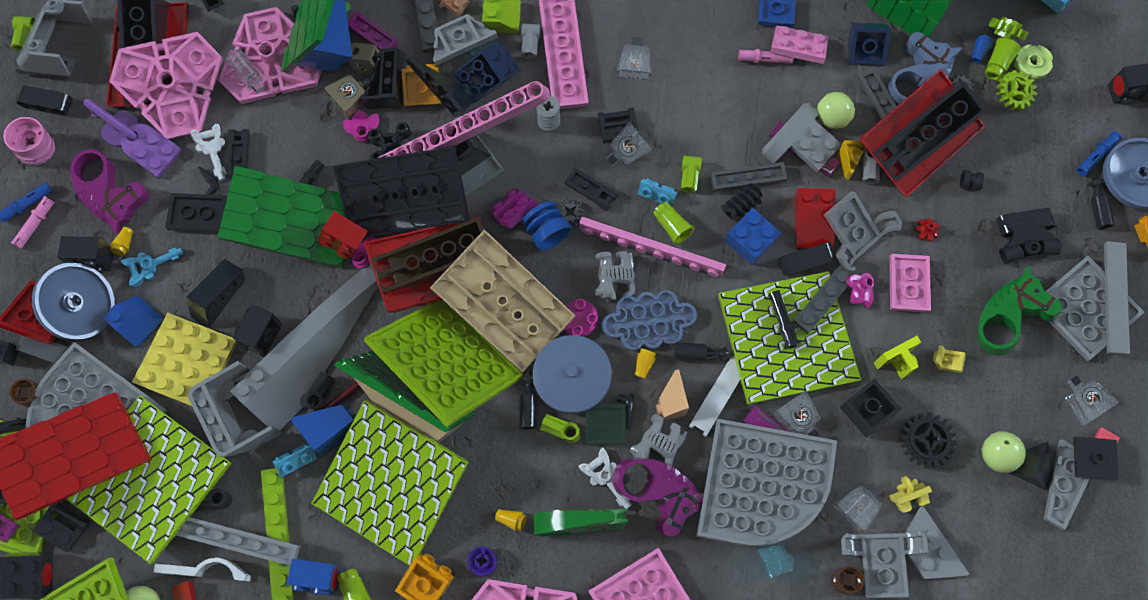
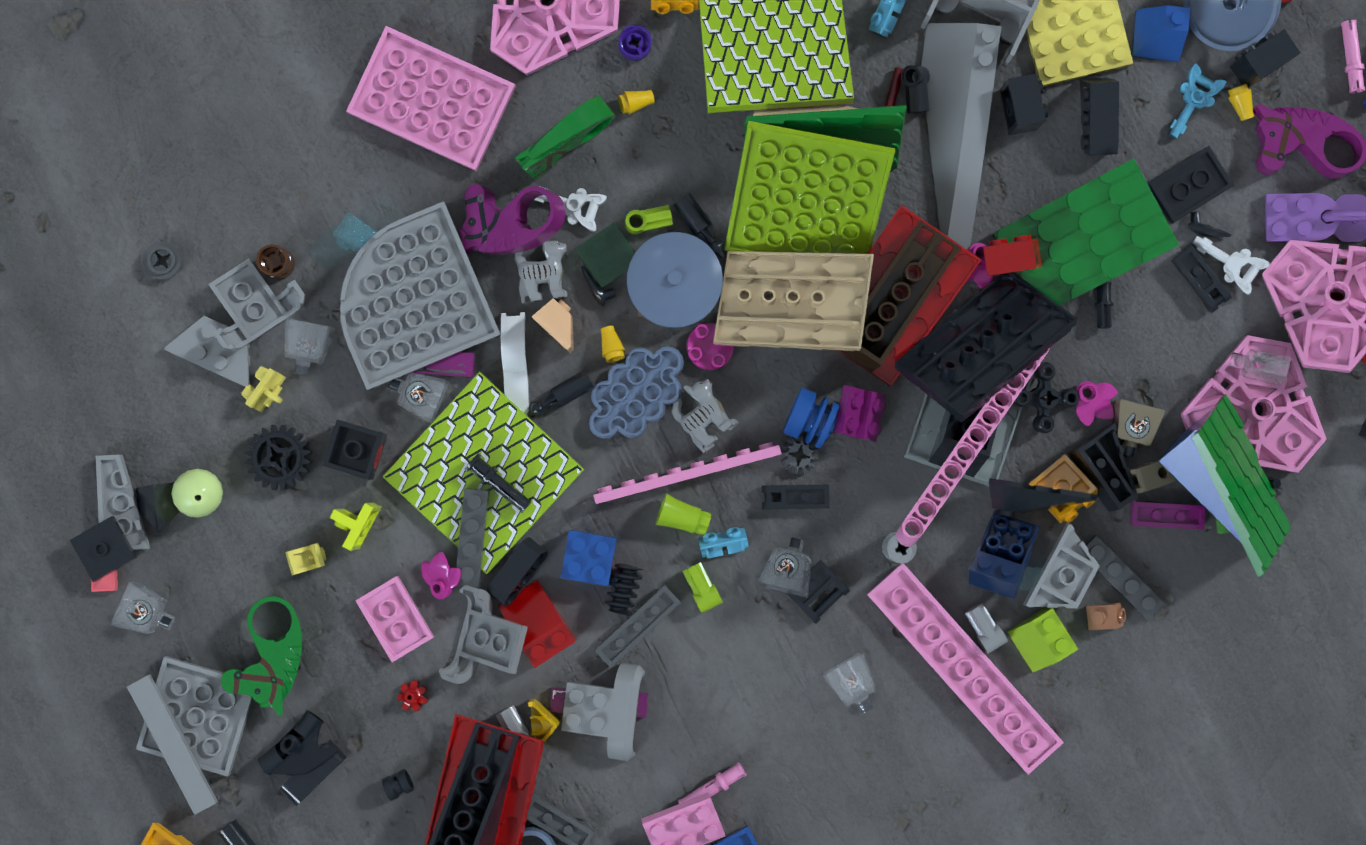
camera: 145 degrees right, 15 degrees up
(325, 427) = (878, 56): blue slope -> none
(835, 110) = (592, 768): yellowish green piece -> none

